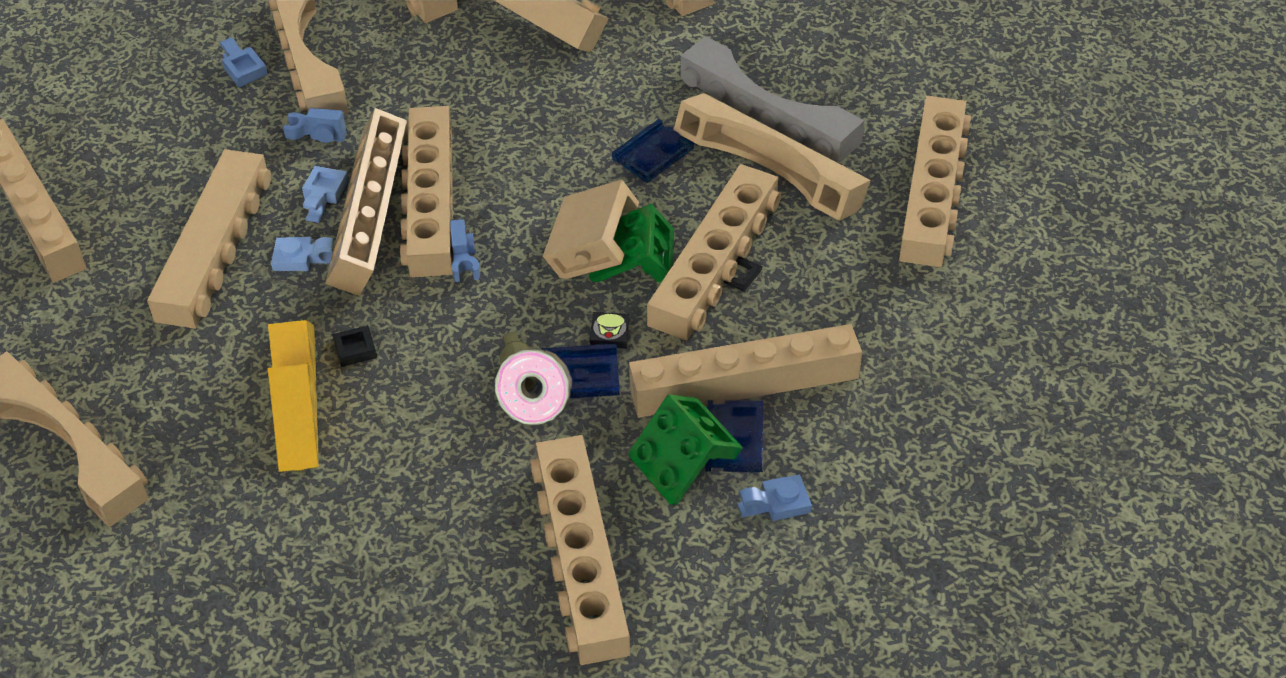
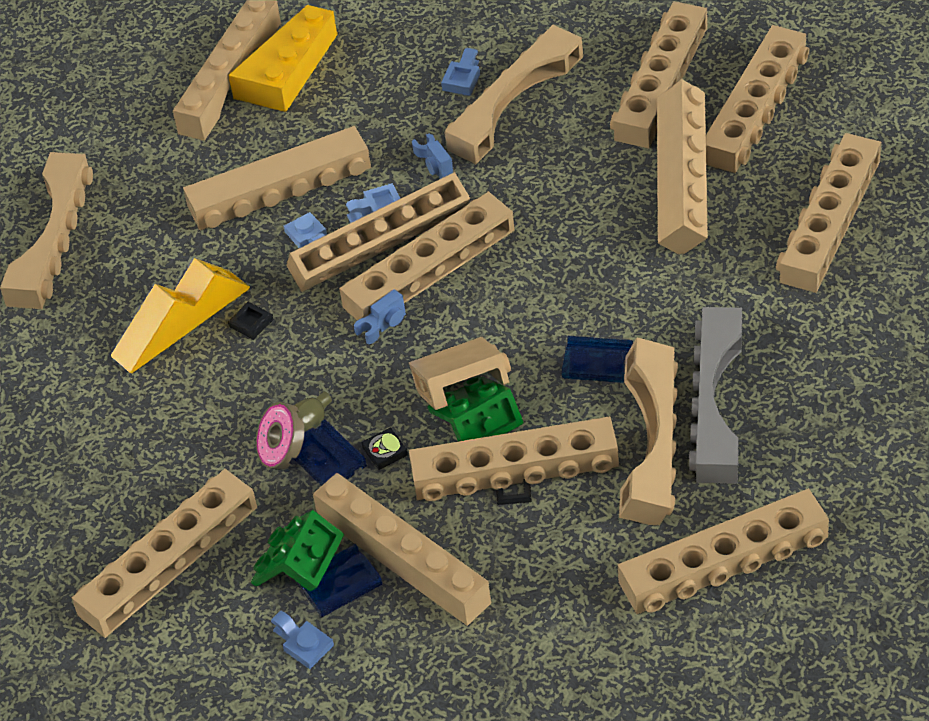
camera: 60 degrees right, 0 degrees up
(77, 162) = (285, 60): none -> yellow wedge

